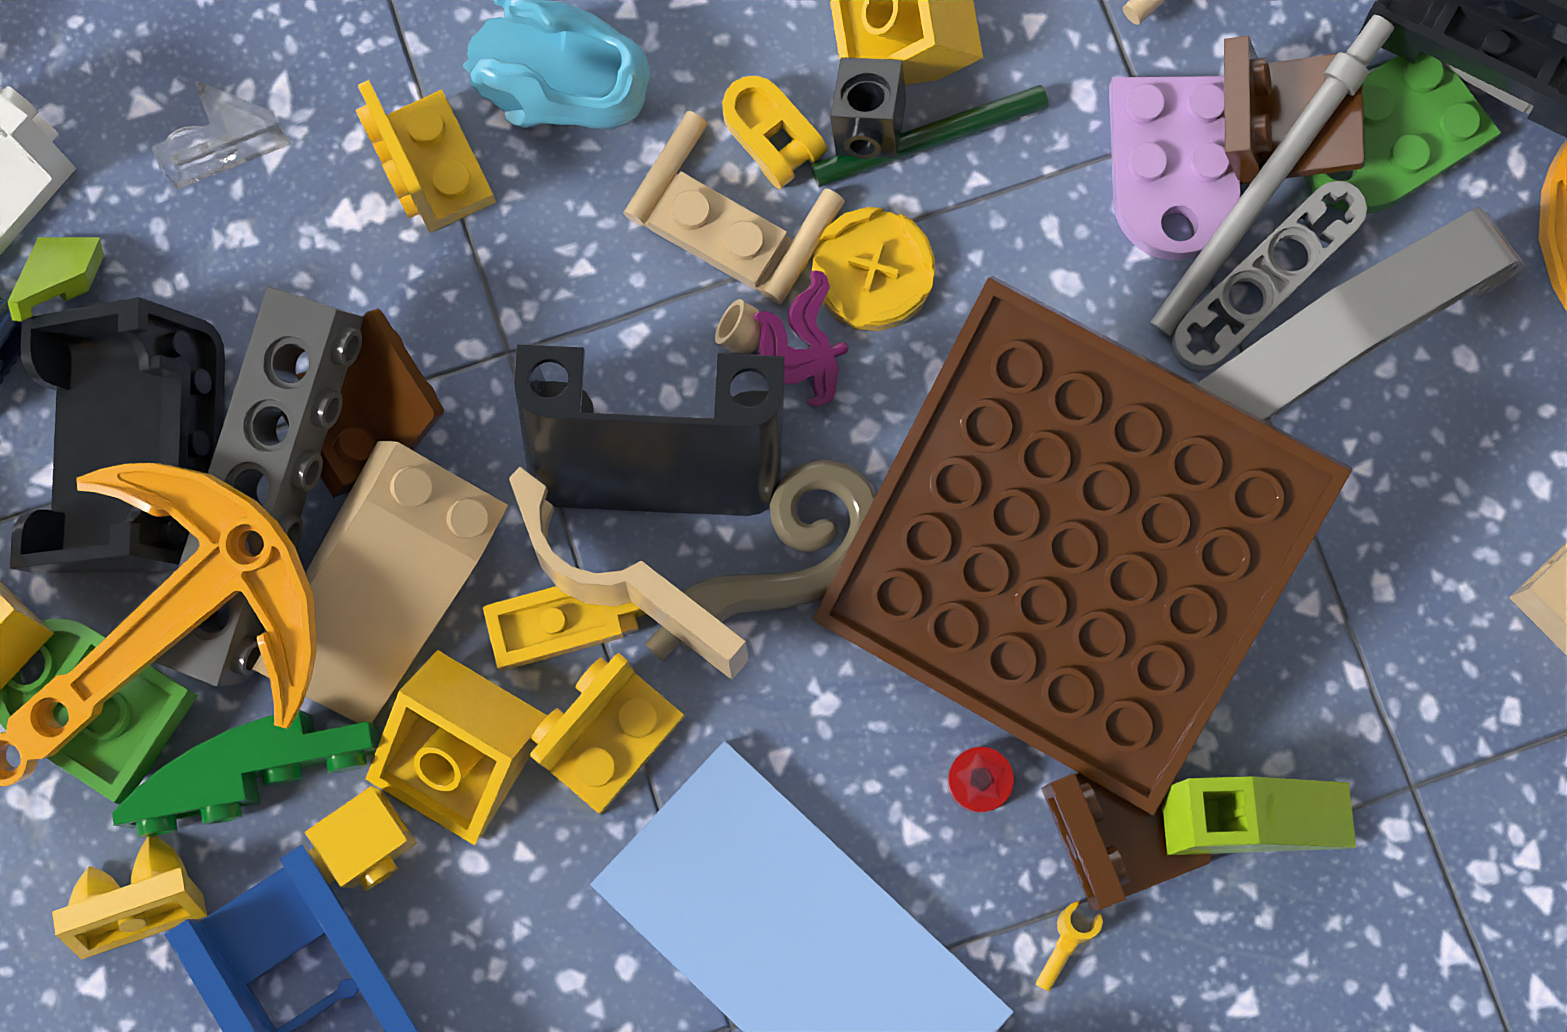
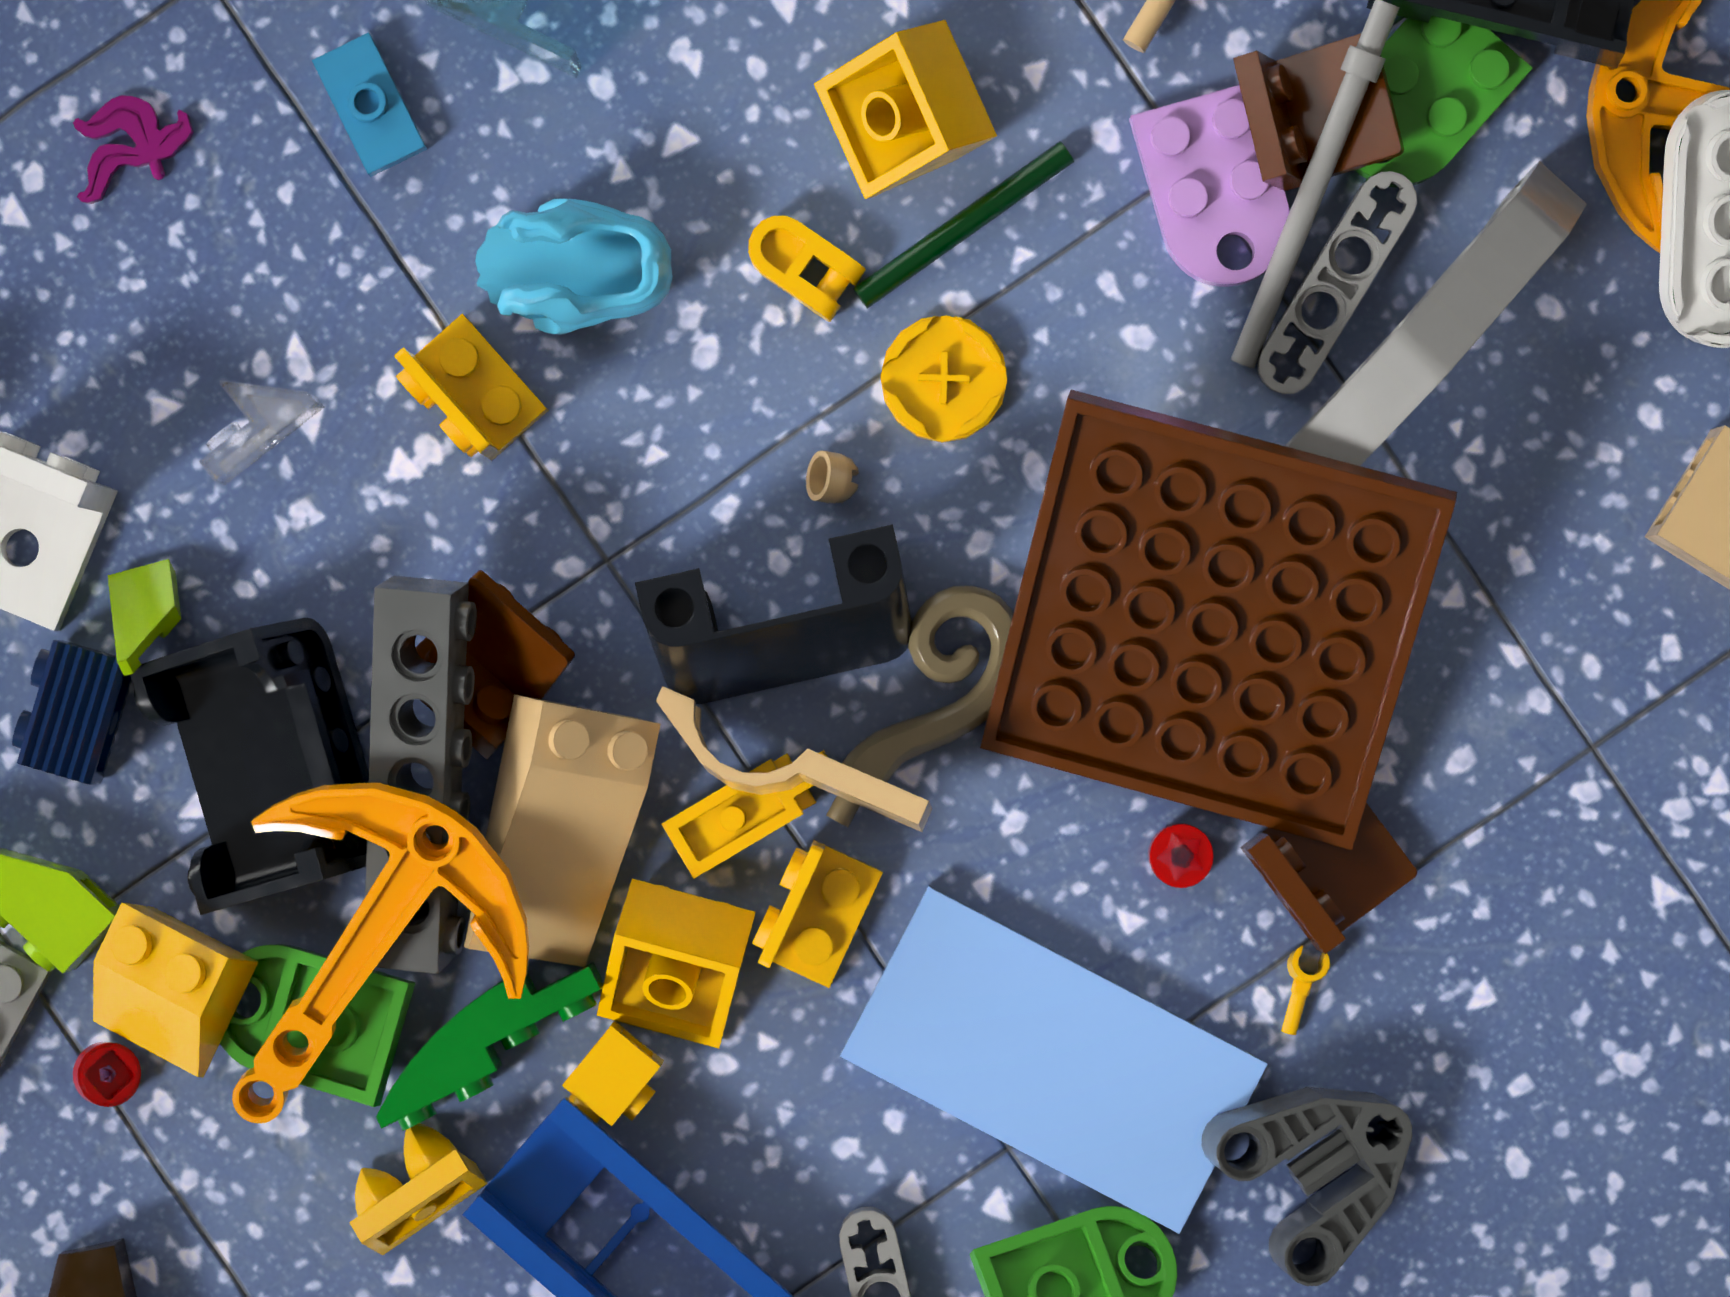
camera: 15 degrees left, 10 degrees up
(720, 228) = (781, 380): tan plate -> none
(819, 357) = (915, 490): magenta piece -> none
(868, 107) = (891, 198): black brick -> none
(1257, 815) = (1452, 822): lime slope -> none

